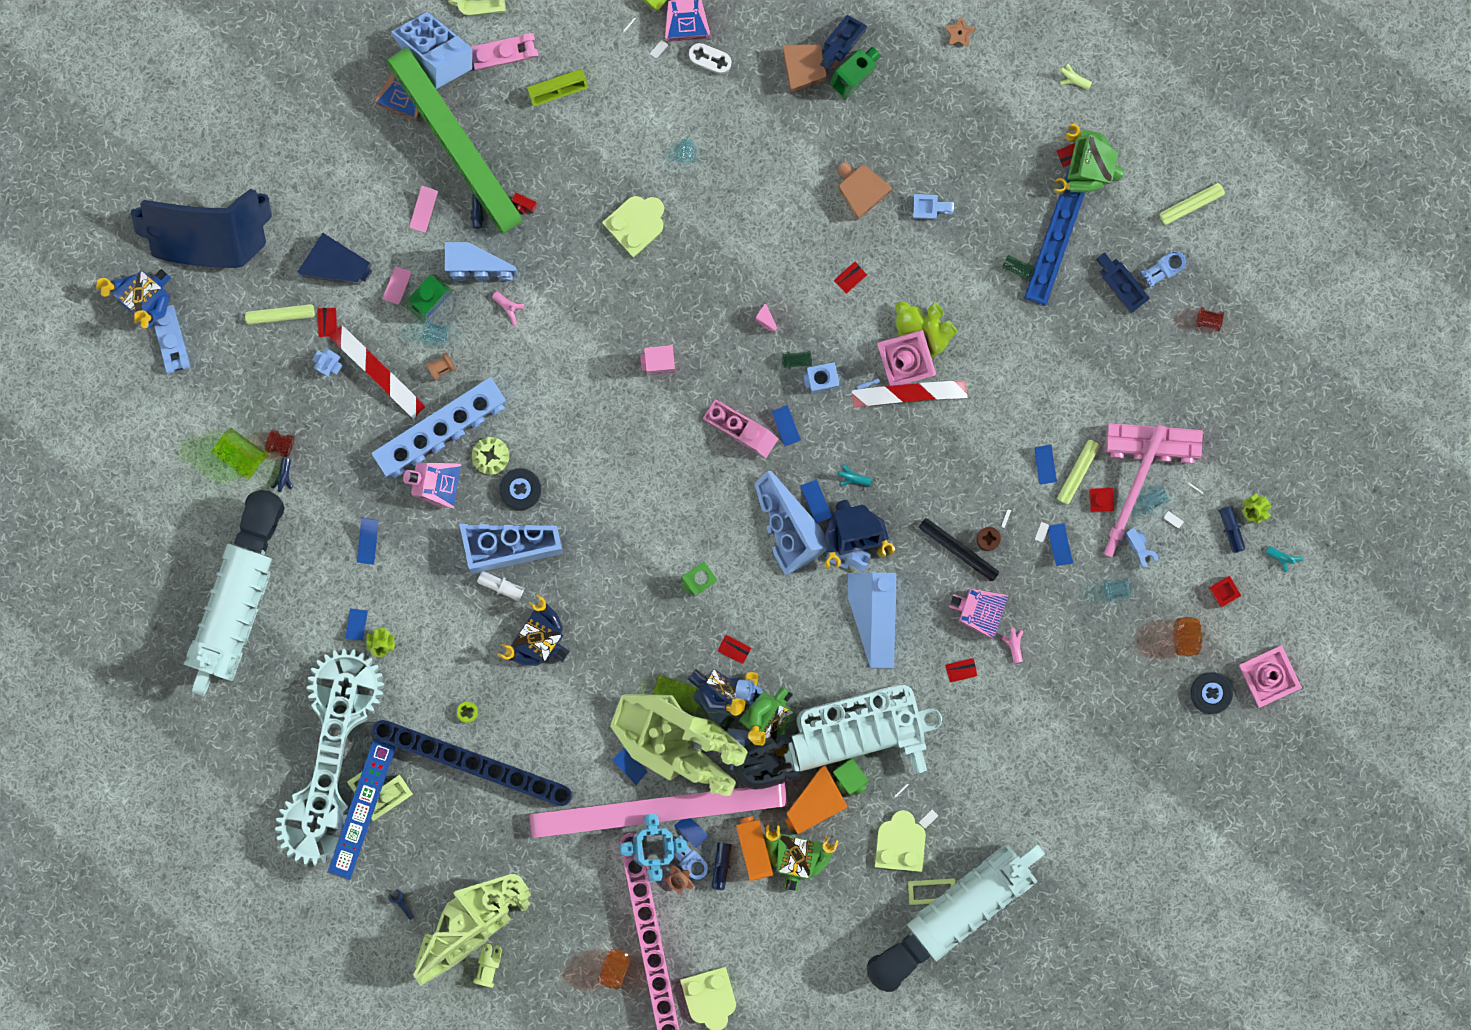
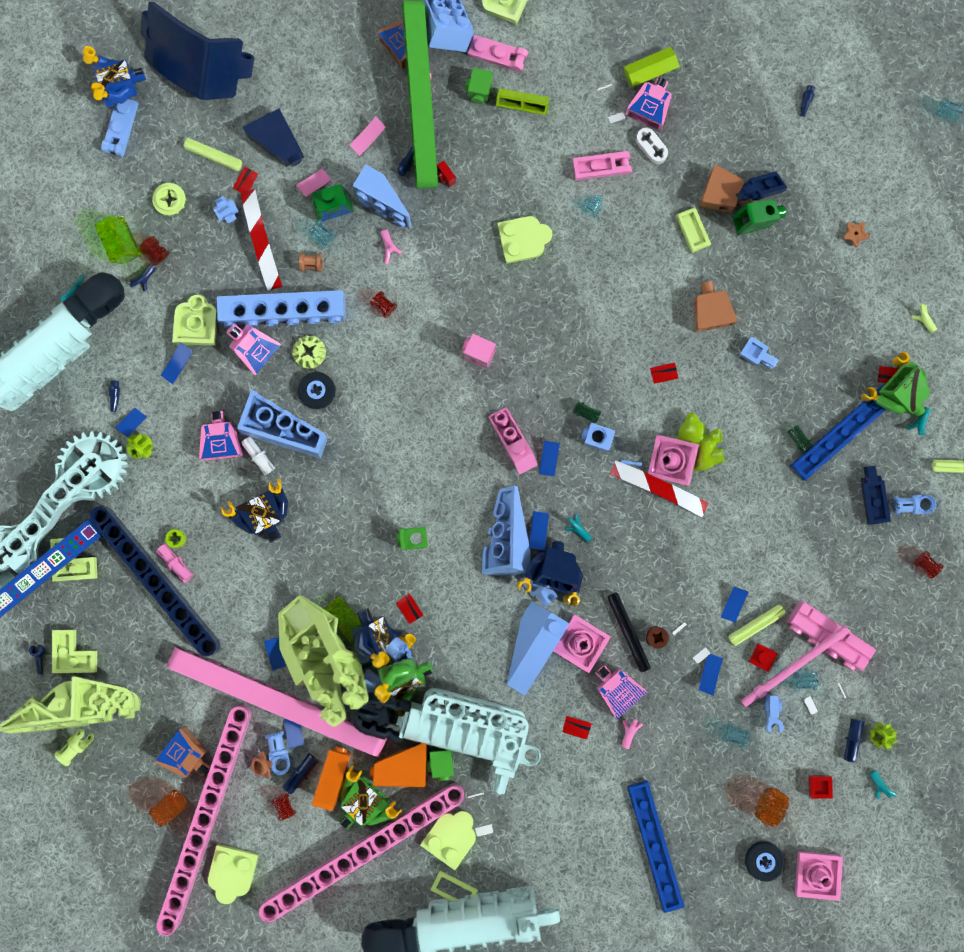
camera: 35 degrees right, 0 degrees up
(222, 528) = (71, 291): none -> teal bar
(252, 381) = (162, 193): none -> yellowish green gear
(322, 606) = (114, 393): none -> dark blue piece
(362, 490) = (195, 322): none -> yellowish green plate
(432, 887) = (66, 658): none -> yellowish green plate
(454, 591) = (219, 439): none -> torso
(481, 736) = (174, 563): none -> bright pink pin
(505, 96) = (479, 85): none -> bright green brick
(537, 367) = (383, 304): none -> clear red bush
(599, 912) = (184, 754): none -> torso
(628, 849) = (232, 722): medium azure piece -> none
(672, 107) = (601, 165): none -> bright pink plate
(723, 906) = (283, 806): none -> clear red bush
(765, 319) = (580, 367): bright pink slope -> none
(798, 119) = (693, 230): none -> yellowish green tile
(823, 916) = (356, 860): none -> bright pink beam
(919, 586) = (581, 643): none -> bright pink plate
(1100, 739) = (655, 846): none -> blue tile
(1127, 184) = (921, 422): none -> teal bar

